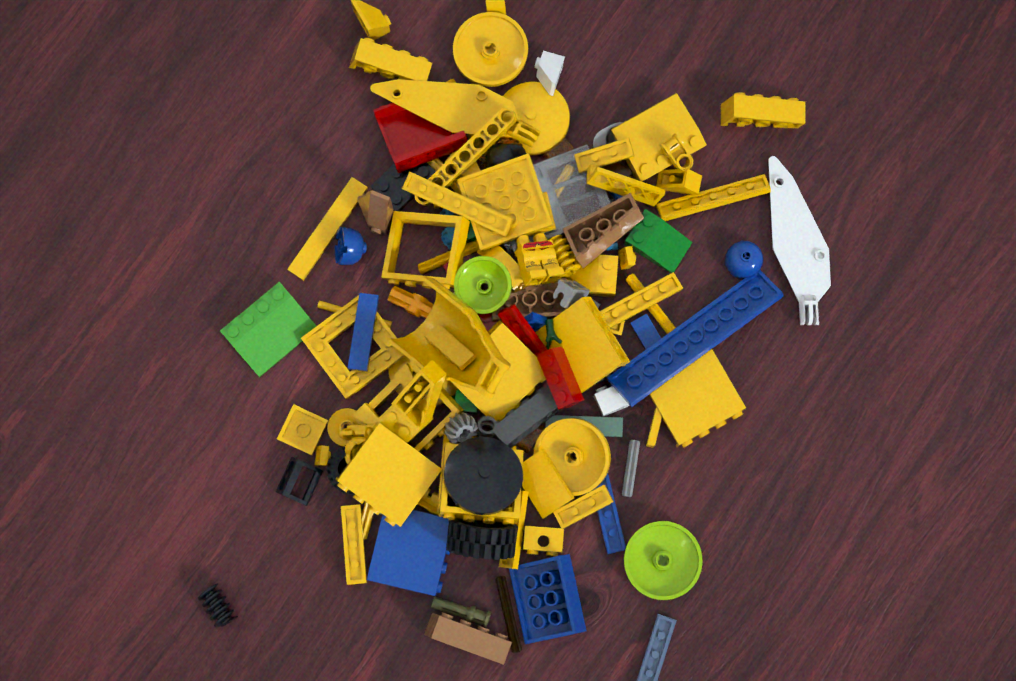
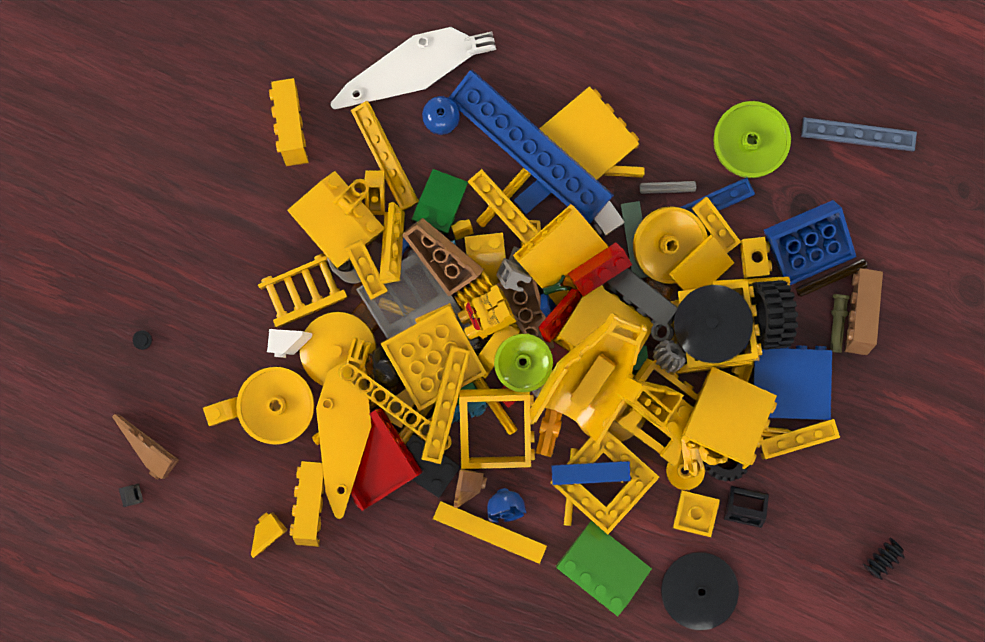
camera: 105 degrees left, 5 degrees up
(242, 428) = (681, 589): none -> black dish
(322, 455) = (718, 488): yellow plate -> none
(579, 90) = (318, 302): none -> yellow fence

